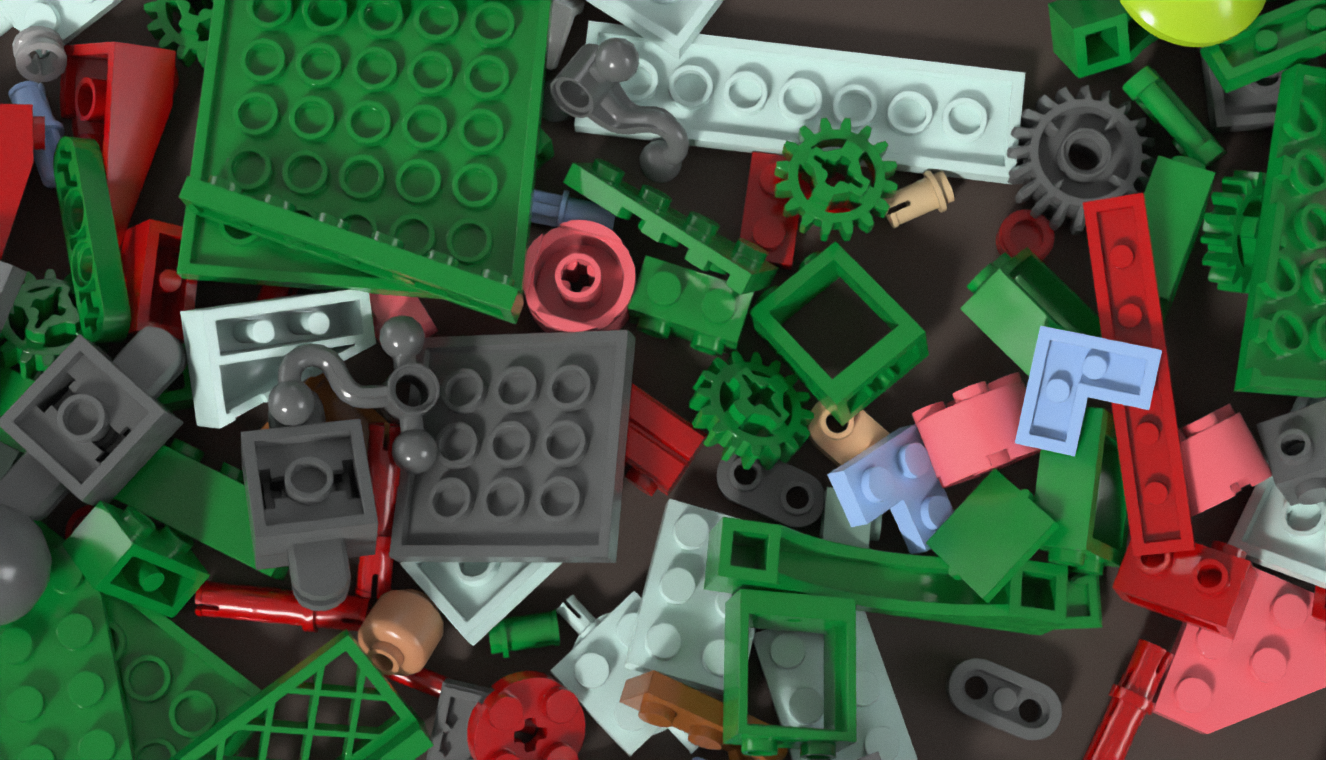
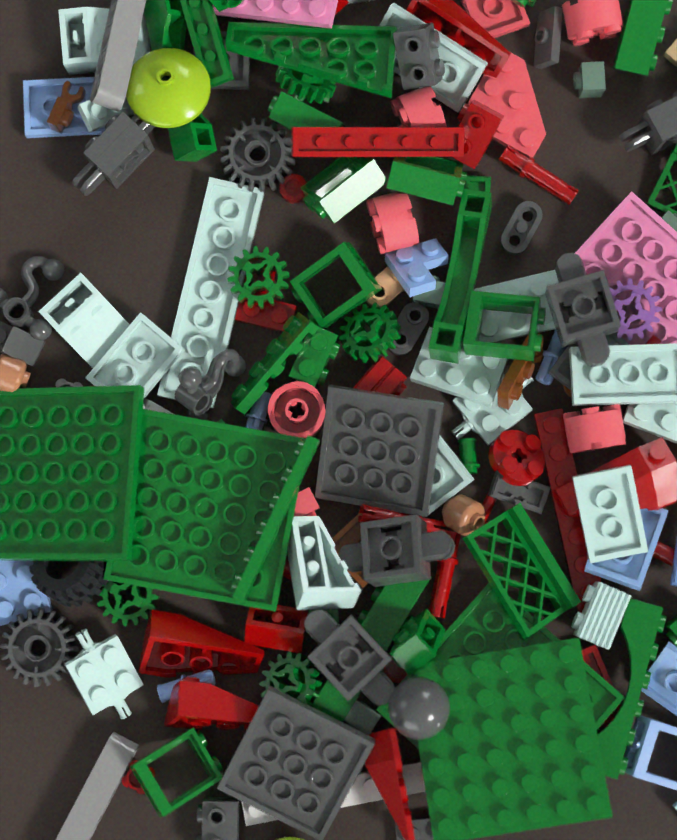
camera: 85 degrees left, 5 degrees up
(39, 69) = (144, 682): light grey bush -> none
(91, 240) = (283, 653): green beam -> none
(402, 339) = (320, 500): dark grey piece -> none
(921, 197) = (268, 237): tan pin -> none
(992, 535) = (446, 222): green piece -> none
(1071, 369) = (374, 169): light blue plate -> none
(1171, 112) = (243, 105): green plate -> none

